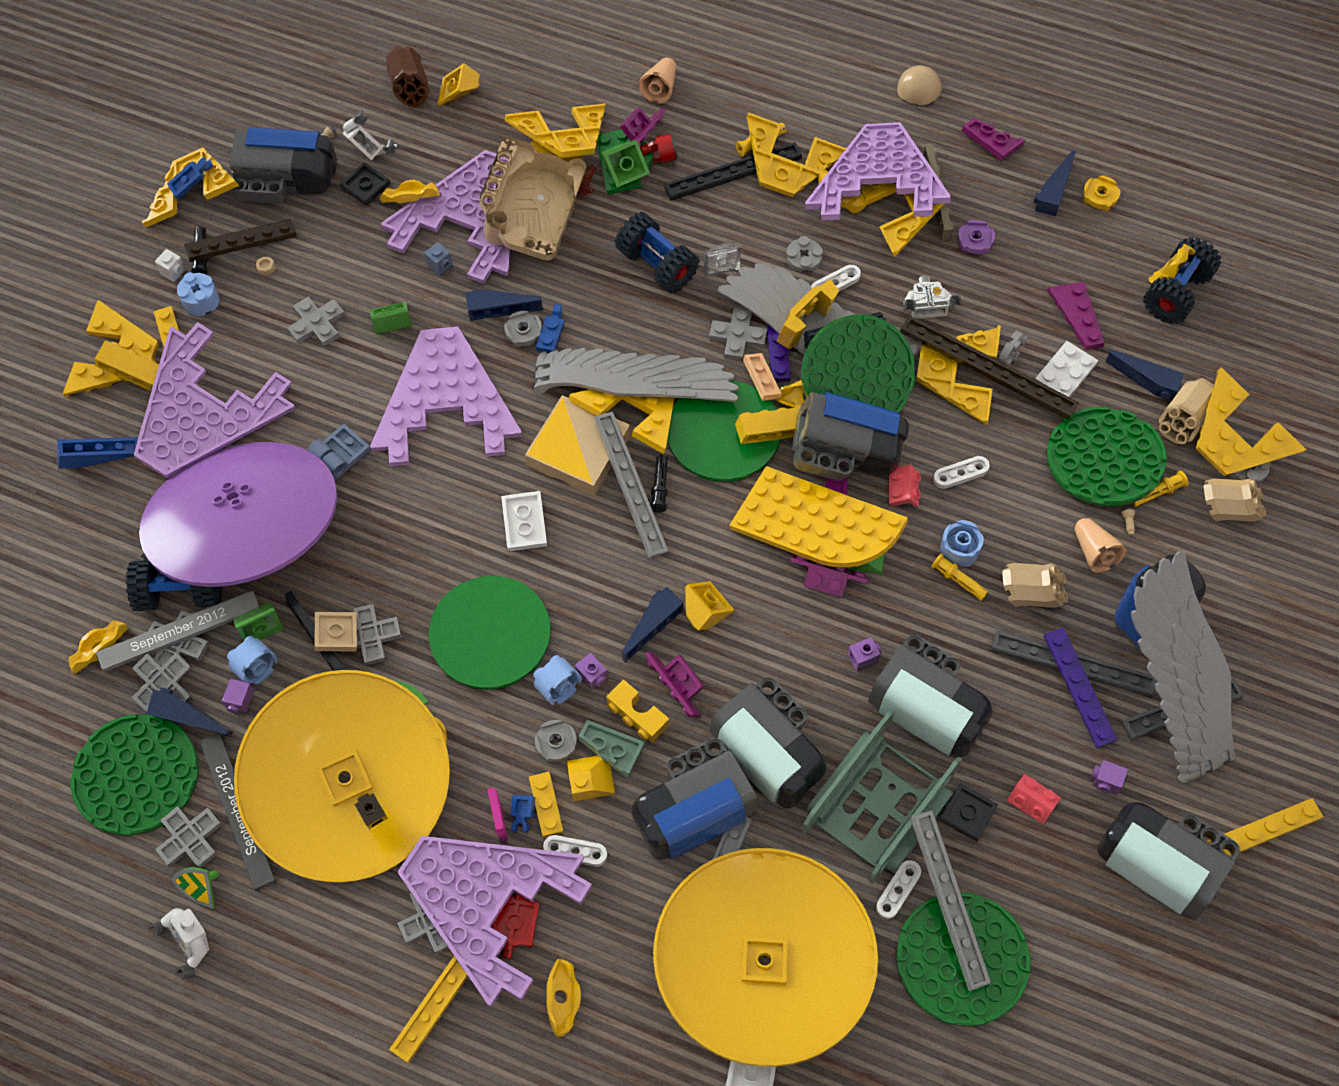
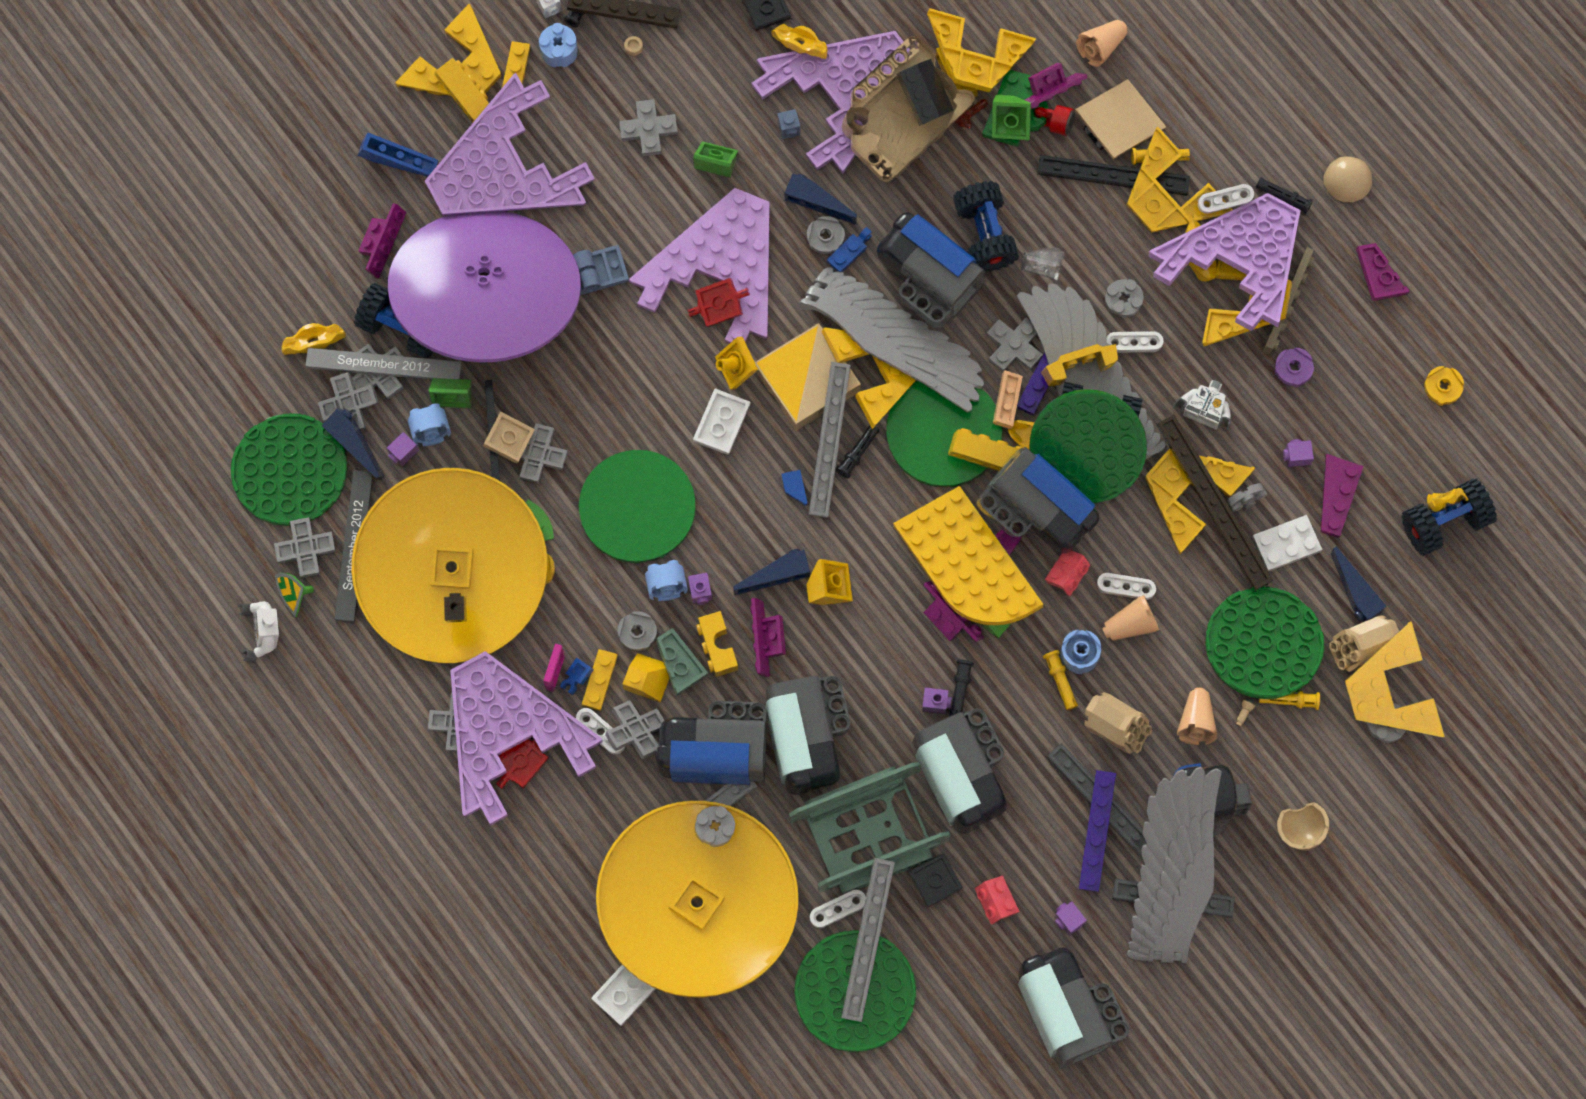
camera: 30 degrees right, 10 degrees up
(118, 527) = (380, 239): none -> magenta bracket
(429, 1011) = (417, 793): yellow plate -> none
(462, 424) = (719, 302): none -> red plate
(508, 464) = (736, 363): none -> yellow plate
(540, 175) = (925, 92): none -> black slope
(562, 1014) = (533, 827): yellow piece -> none
(608, 830) = (635, 729): none -> light grey plate
(622, 541) = (794, 486): none -> blue tile
(630, 304) = (931, 269): none -> piece
(710, 129) = (1119, 119): none -> tan piece
(740, 888) = (710, 836): none -> light grey plate
(839, 135) = (1231, 193): none -> white plate
(875, 119) = (1292, 199): none -> black pin
(876, 624) = (961, 679): none -> black pin
(987, 495) = (1131, 621): none -> light nougat cone
(1027, 297) = (1298, 453): none -> medium lavender brick
(1052, 190) = (1399, 358): dark blue slope -> none
(1234, 499) = (1345, 745): tan brick -> none
(1251, 584) = (1303, 827): none -> tan cylinder
(1275, 825) = (1174, 1033): yellow plate -> none

